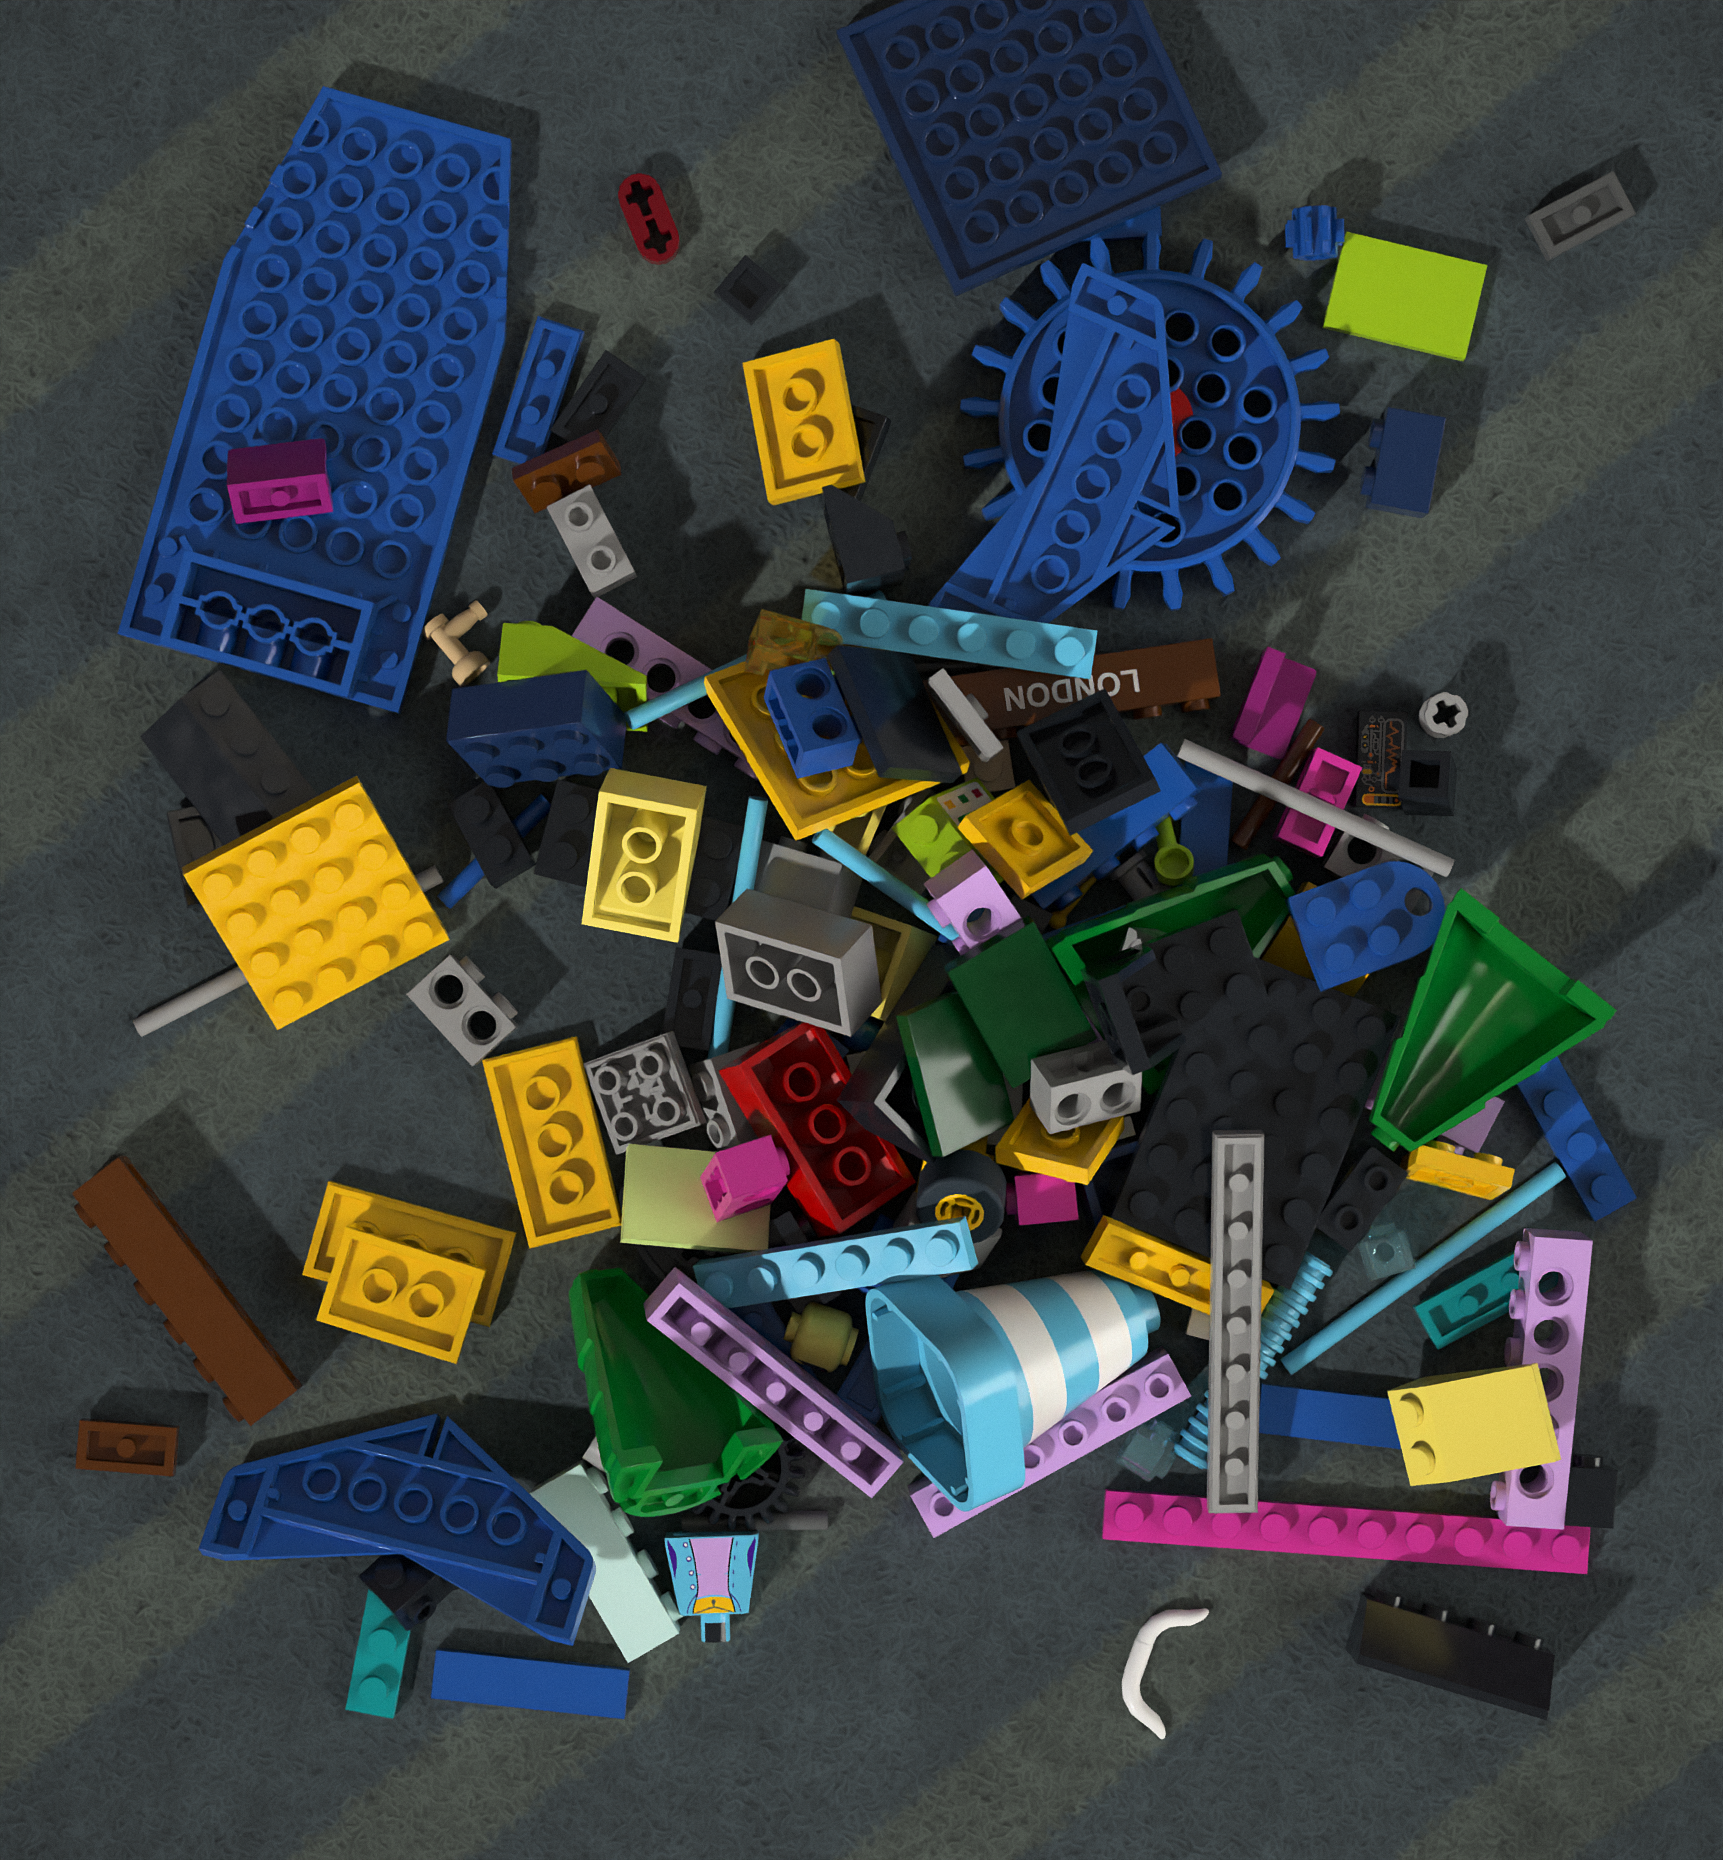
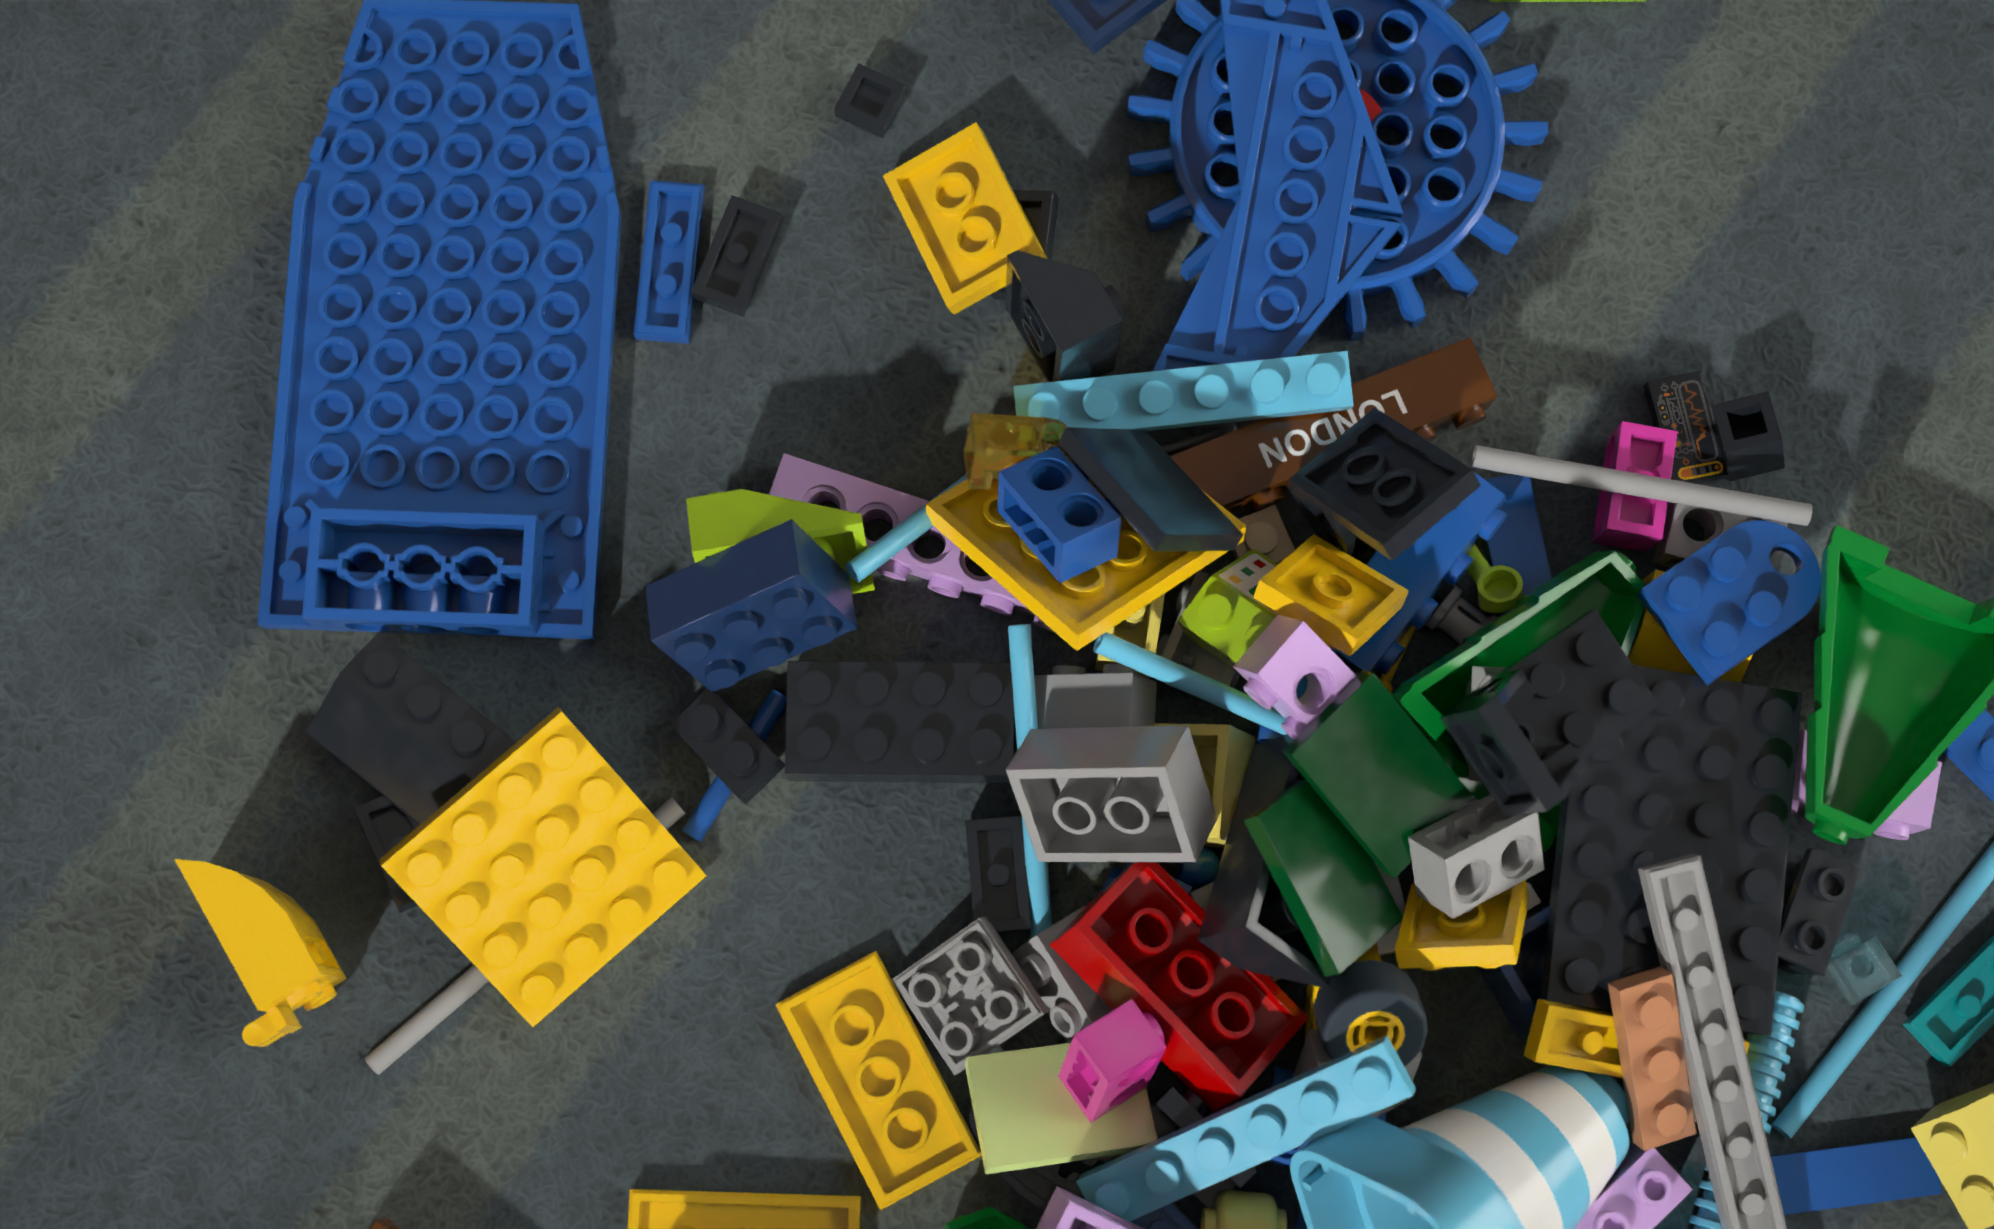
camera: 10 degrees left, 10 degrees down
(75, 909) = (269, 945): none -> yellow piece
(279, 481) = (403, 413): magenta panel -> none
(447, 634) = (628, 542): tan piece -> none
(455, 1018) = (734, 961): light grey brick -> none
(566, 470) = (718, 331): reddish brown plate -> none
(591, 541) = (764, 398): light grey brick -> none
(638, 223) = (755, 48): dark red beam -> none
(643, 854) = (904, 717): light yellow slope -> none
(965, 714) = (1227, 474): light grey plate -> none
(1040, 1198) = (1460, 998): dark pink brick -> none
(1184, 1284) = (1652, 1058): none -> nougat plate
(1272, 704) = (1550, 398): magenta panel -> none
(1284, 773) = (1577, 496): reddish brown bar -> none
(1403, 462) = (1618, 111): dark blue brick -> none
(1441, 1167) = (1918, 855): yellow plate -> none
(1456, 721) = (1753, 350): light grey bush -> none

